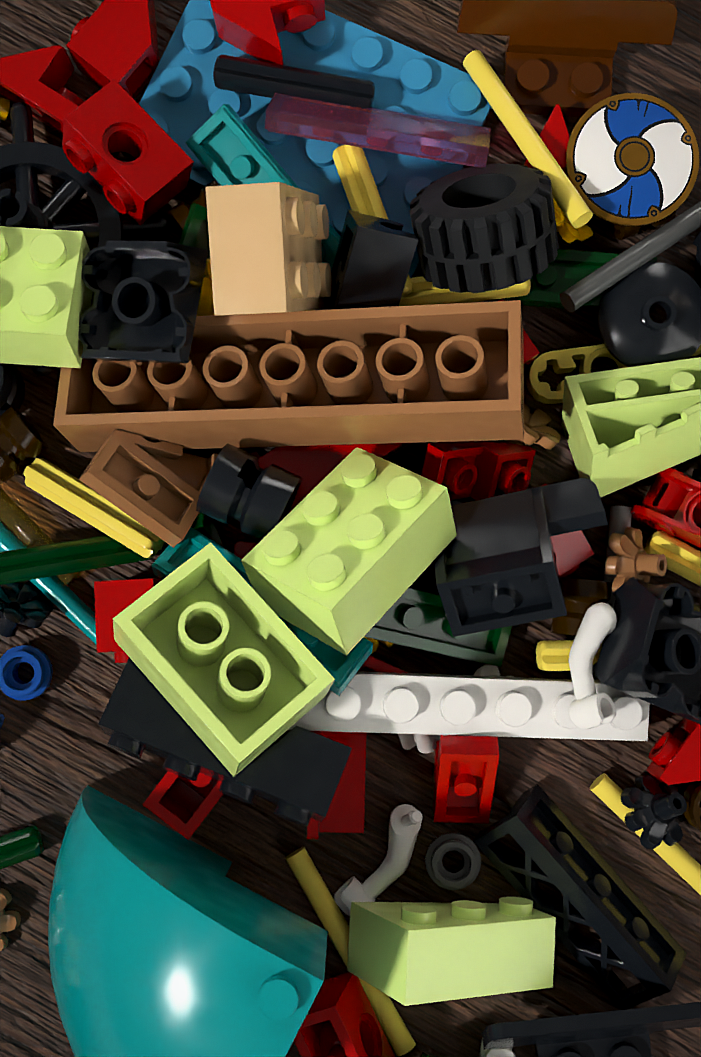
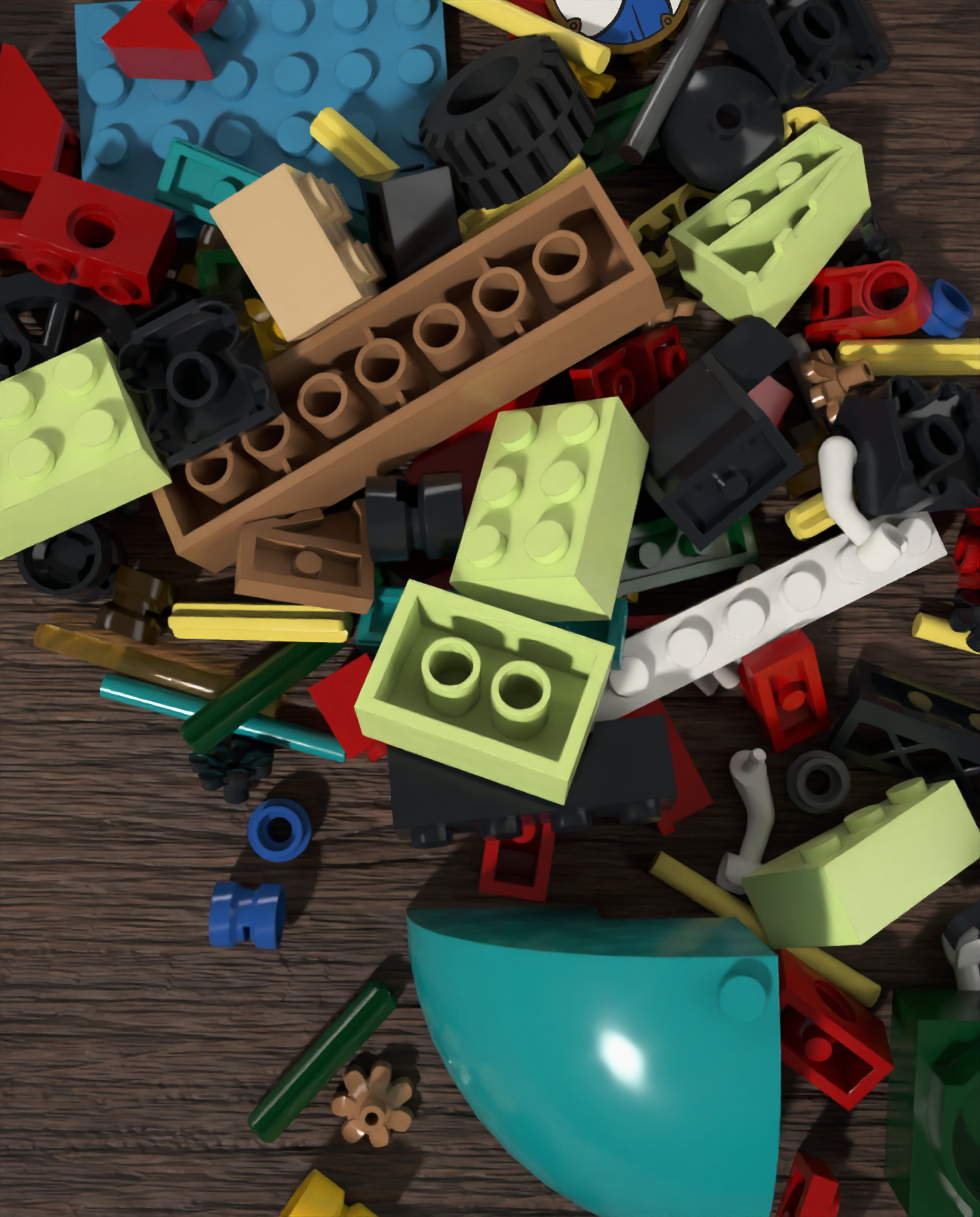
camera: 30 degrees left, 0 degrees up
(269, 78) = (232, 83): black axle -> none
(379, 130) = (345, 82): clear pink tile -> none

